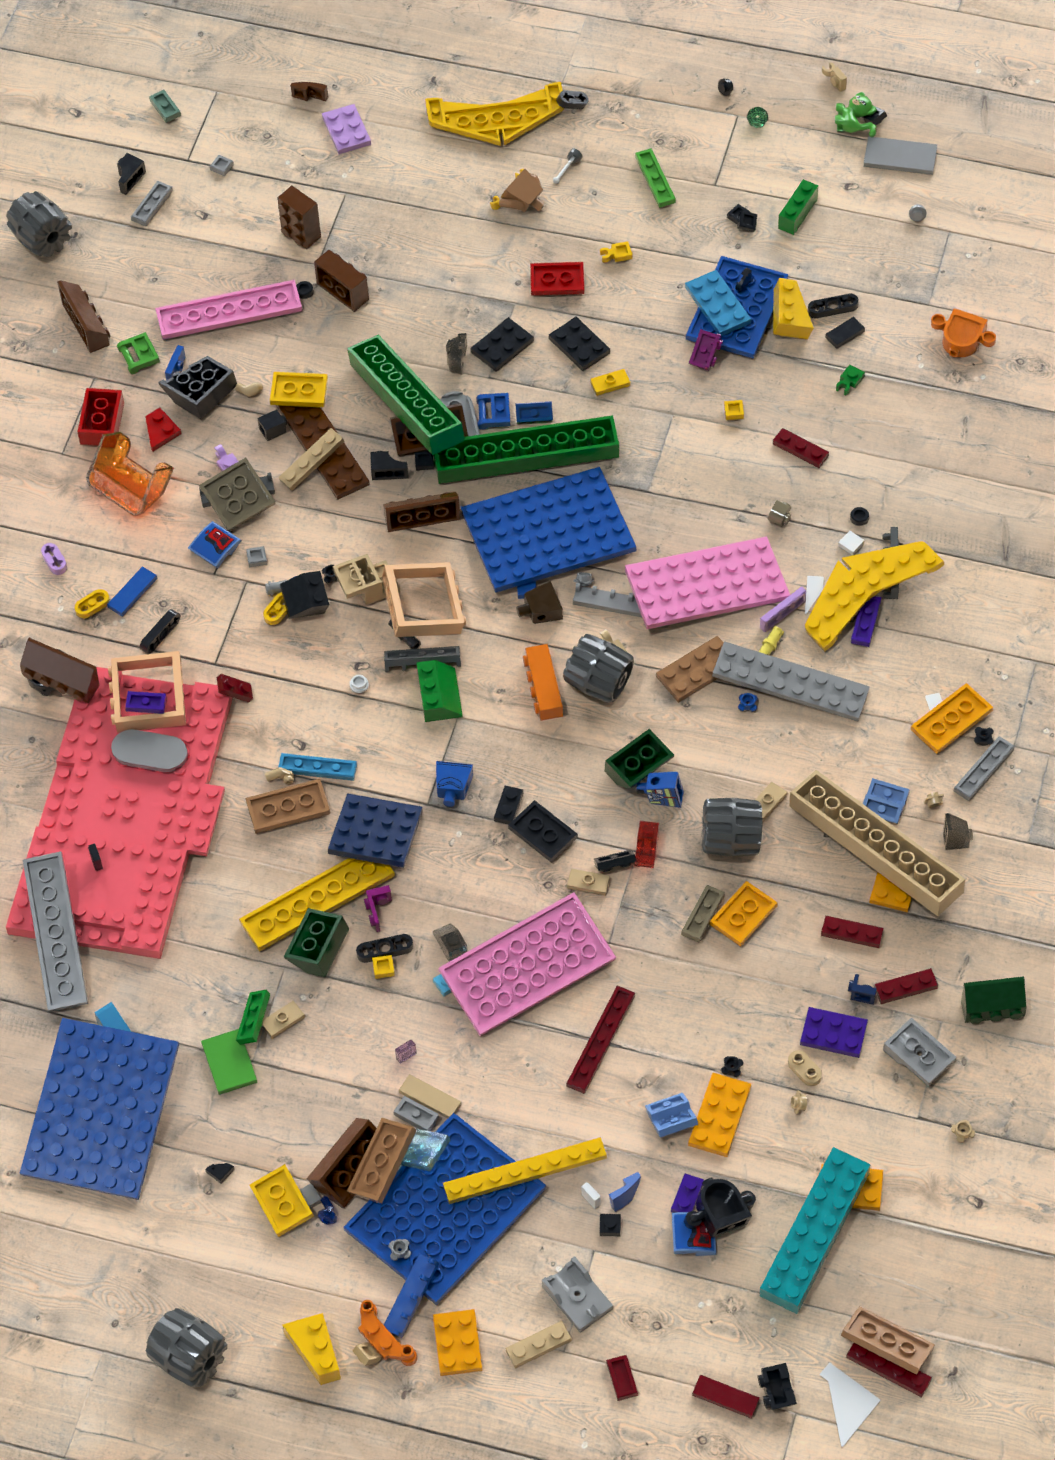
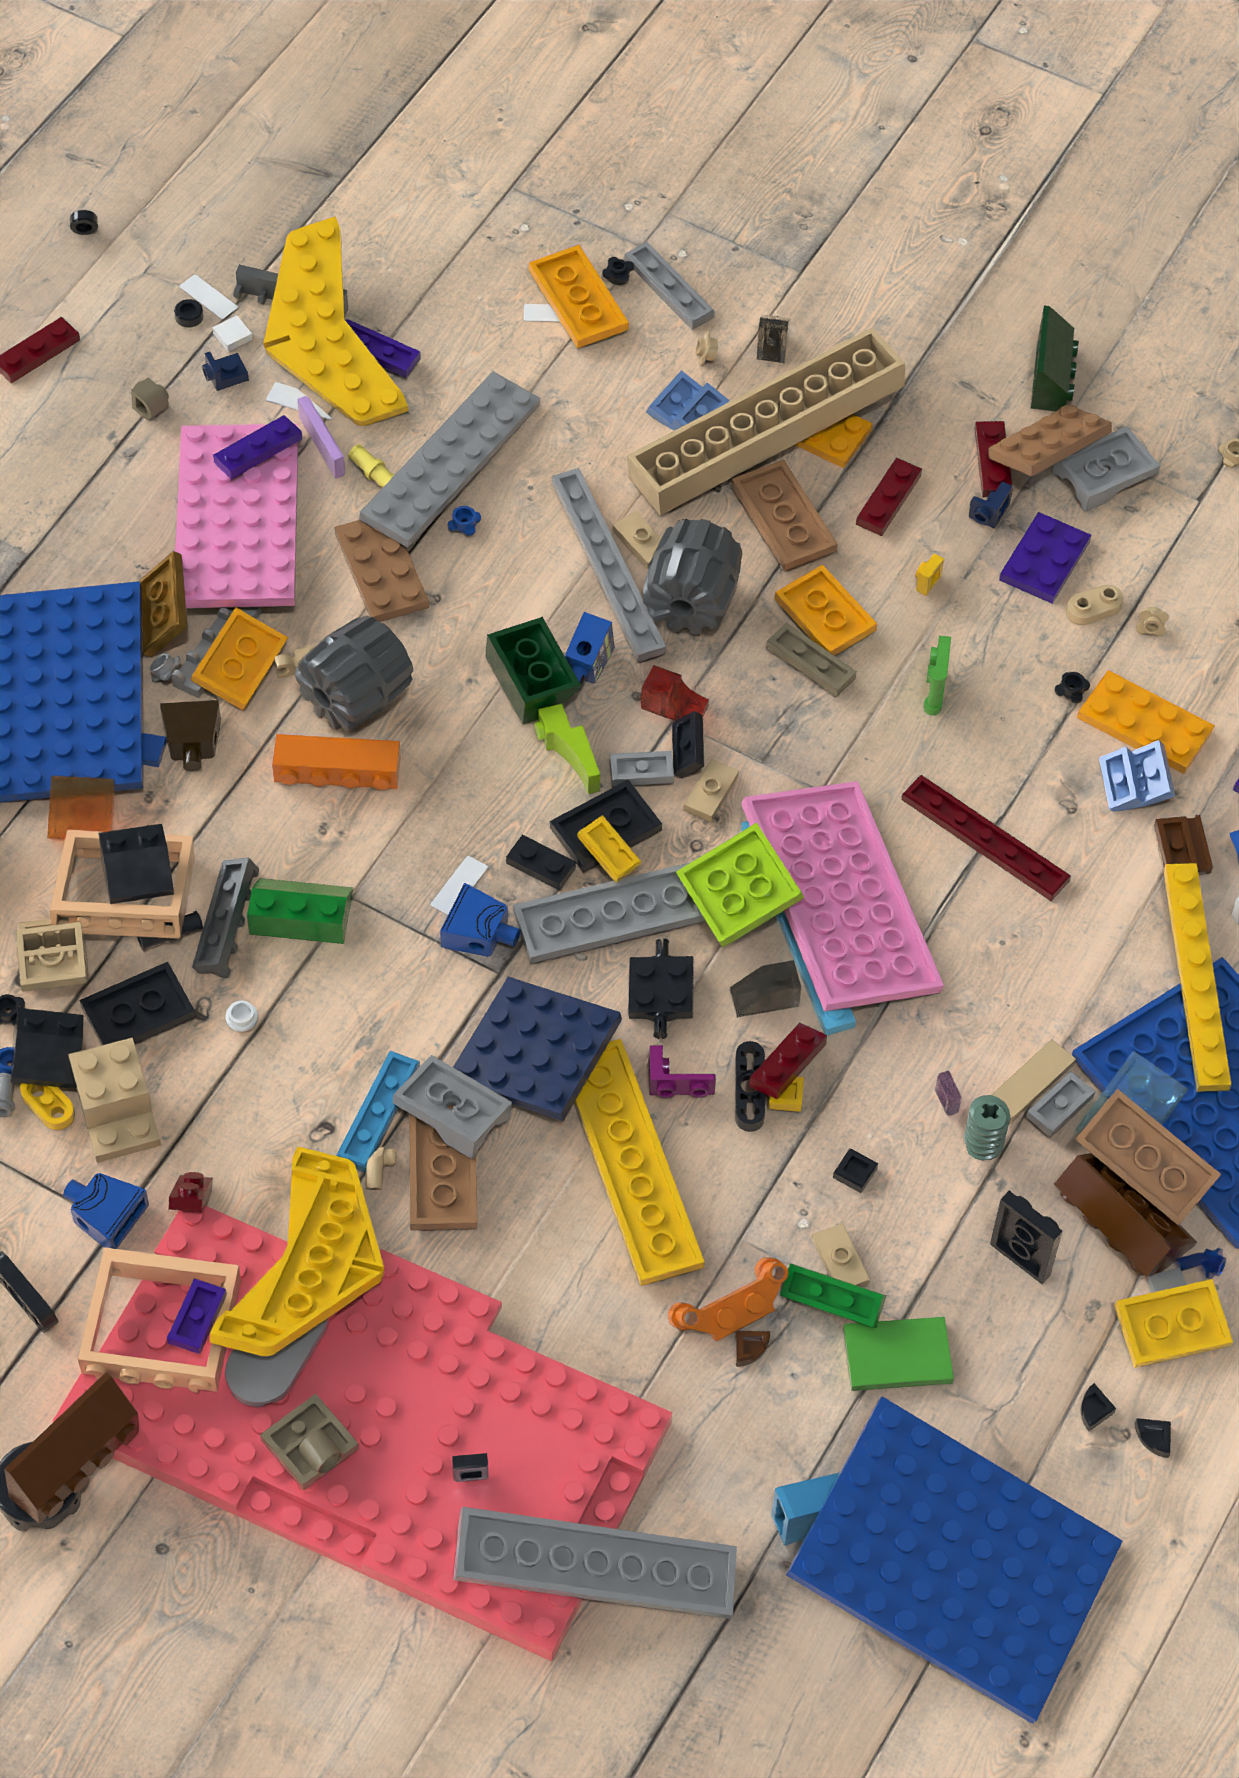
camera: 80 degrees left, 0 degrees up
(94, 779) = (309, 1441): none -> dark tan plate
(193, 754) = (324, 1267): none -> yellow wing
(209, 1206) = (1154, 1435): none -> black tile
(215, 986) = (750, 1346): none -> reddish brown tile
(217, 654) = (106, 1208): none -> blue torso
(234, 971) = (737, 1307): none -> orange plate
(283, 636) = (114, 1099): none -> tan bracket
(306, 1102) = (1026, 1236): none -> black plate
(317, 942) = (722, 1170): dark green slope -> none
(323, 783) = (474, 1108): none -> light grey piece
(343, 1015) = (855, 1170): none -> black tile
(348, 633) = (138, 1006): none -> black plate
(382, 1072) = (986, 1127): none -> sand green piece
(402, 961) = (788, 1060): none -> dark red plate
(425, 595) = (136, 863): none -> black slope
(438, 887) = (661, 988): none -> black plate
(470, 566) = (80, 805): none -> clear orange plate
(485, 769) = (469, 873): none -> white sticker
(490, 861) = (605, 914): none -> light grey plate
(509, 903) = (740, 885): none -> lime plate
(519, 832) = (609, 849): none -> yellow plate
(590, 840) = (642, 768): none -> light grey plate
(600, 612) = (239, 658): none -> light orange plate
(603, 788) = (569, 743): none -> lime slope
(623, 562) = (163, 604): none -> pearl gold tile
(626, 1150) = (1183, 842): none -> reddish brown plate
(712, 982) = (937, 675): none -> bright green plate
(743, 783) = (608, 565): none -> light grey plate
(757, 576) = (257, 447): none -> dark purple plate
(792, 965) = (929, 574): none -> yellow plate
(812, 874) = (784, 515): none -> medium nougat plate
(819, 546) = (224, 371): none -> dark blue bracket
(878, 523) = (208, 296): none -> white sticker
(907, 440) = (83, 222): none -> black tile
(923, 1011) = (1050, 440): none -> medium nougat plate

